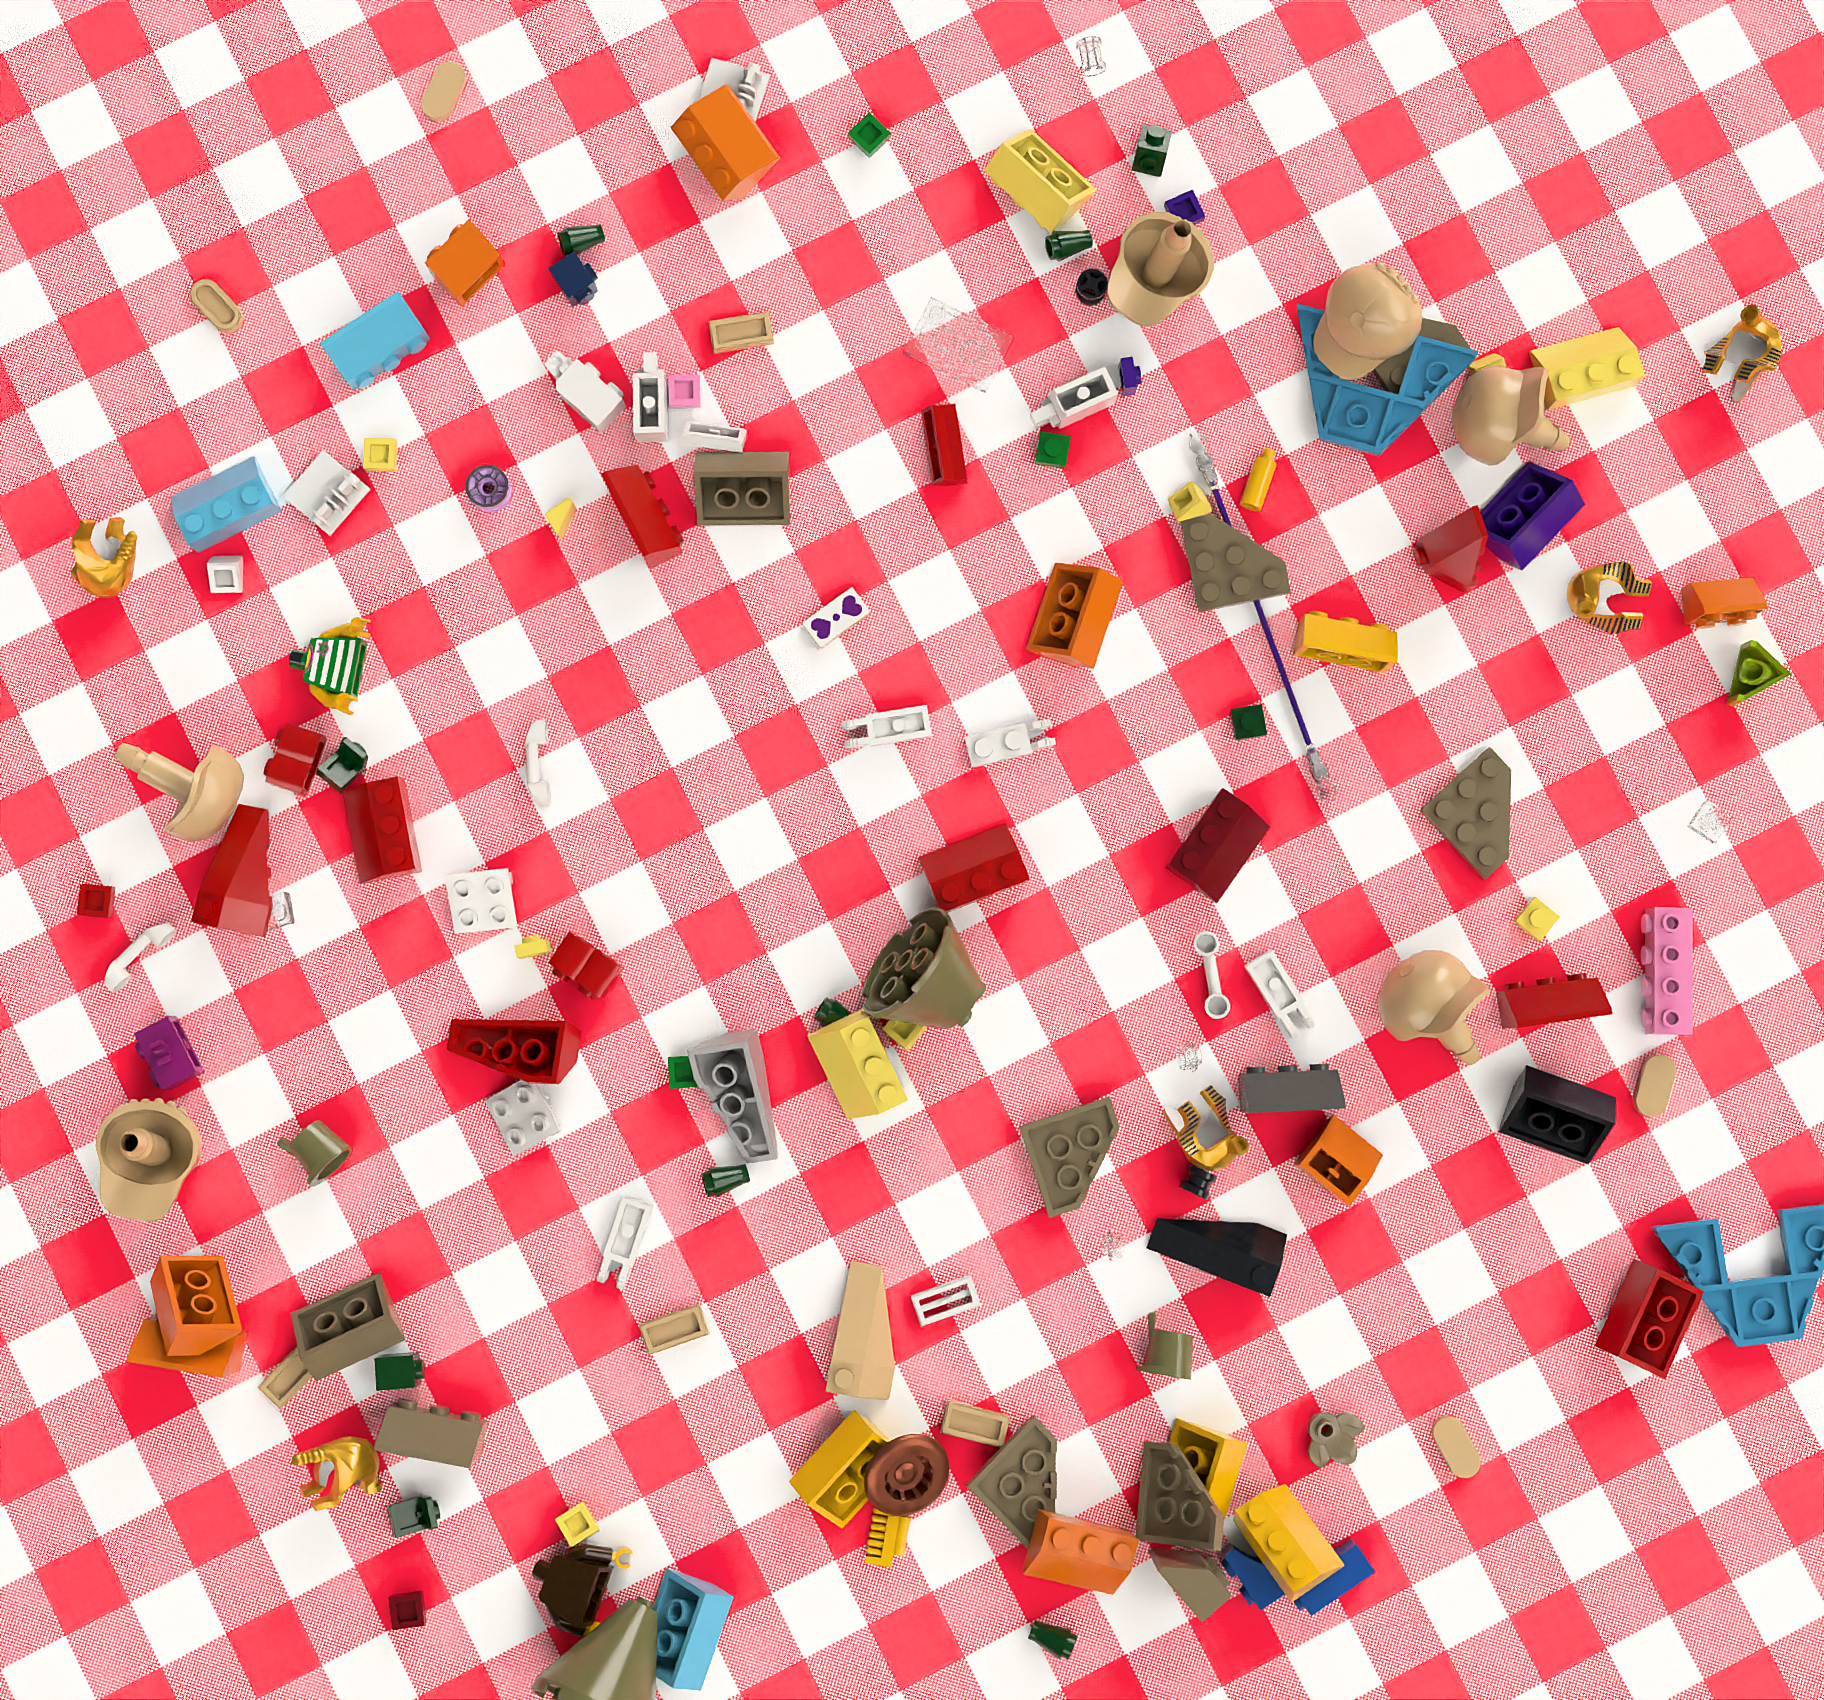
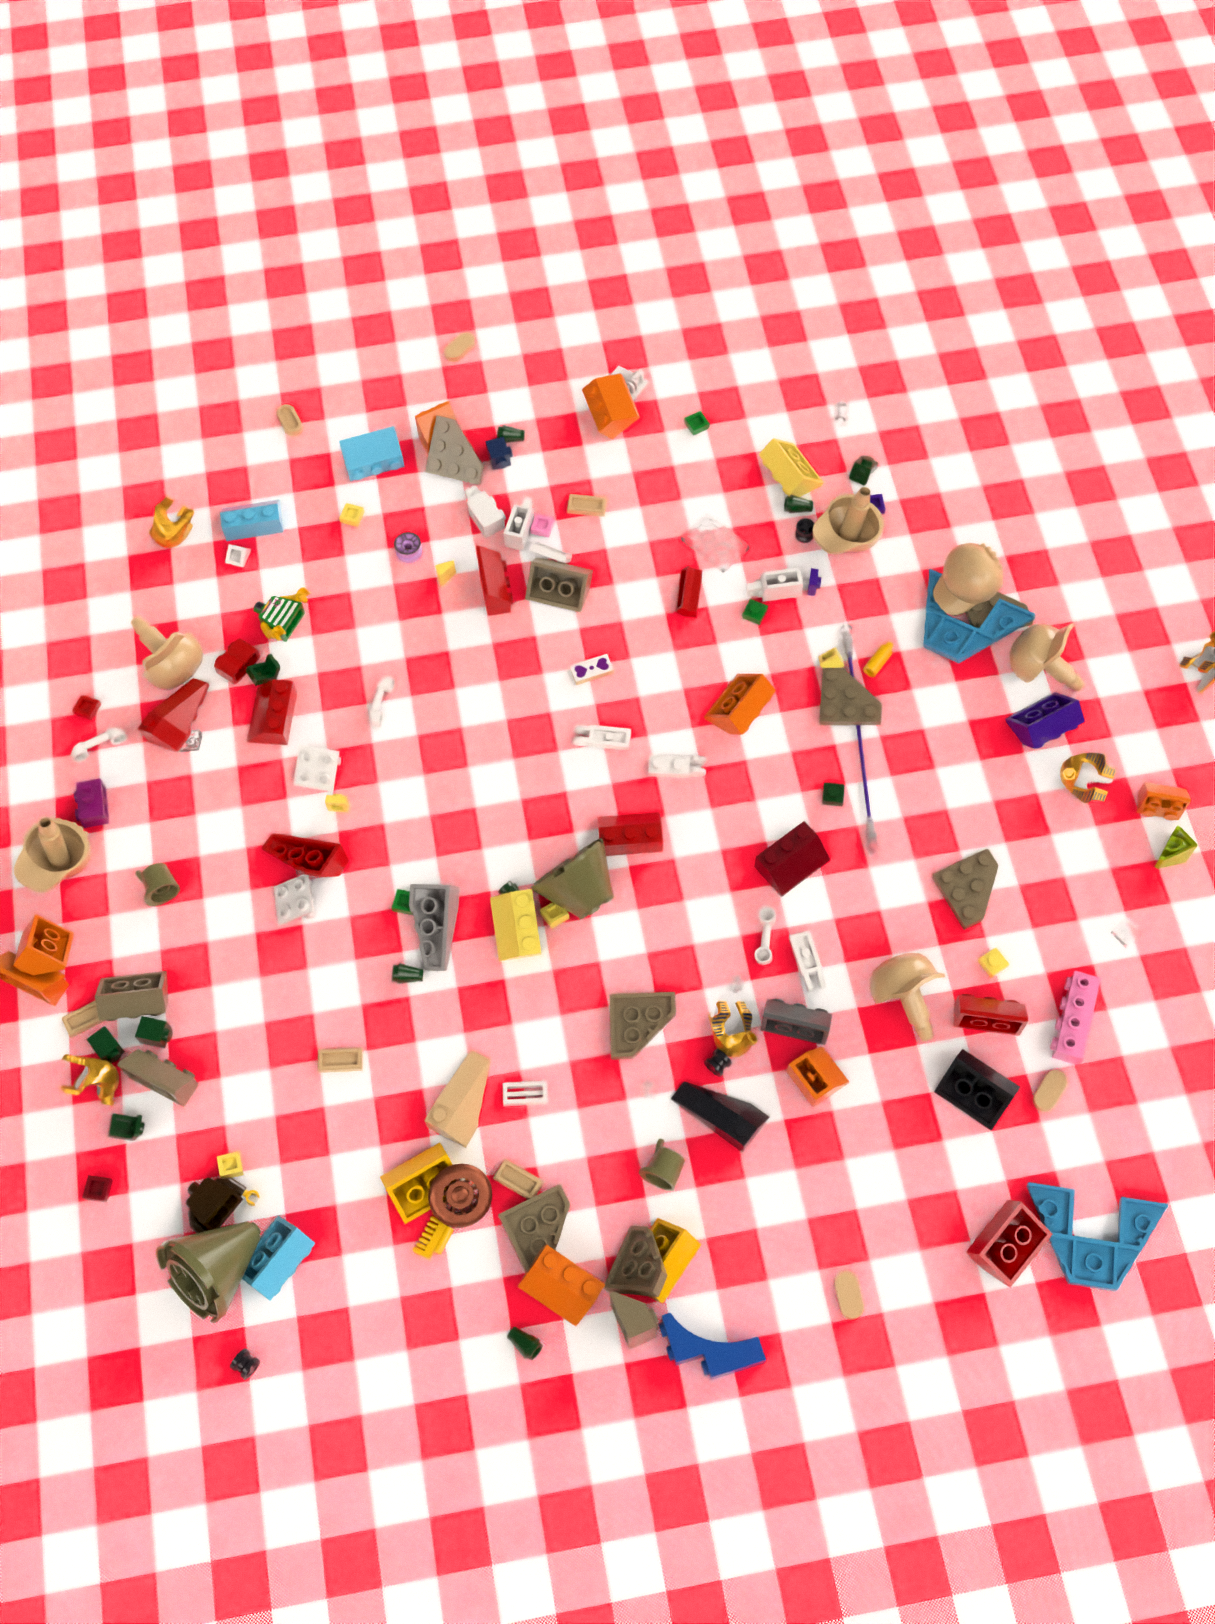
camera: 20 degrees right, 20 degrees down
(326, 492) = (313, 527): white hinge -> none
(339, 1410) = (106, 1045): none -> dark green brick
(503, 304) = (452, 453): none -> plate
(585, 965) = (366, 822): red brick -> none
(625, 1238) = (329, 993): white hinge -> none
(1287, 1541) = (708, 1317): yellow slope -> none
(1336, 1441) = (764, 1266): dark tan plate -> none
(1346, 642) = (908, 762): yellow slope -> none
(1453, 550) = (989, 720): red wedge -> none
(1588, 367) = (1104, 649): light yellow slope -> none

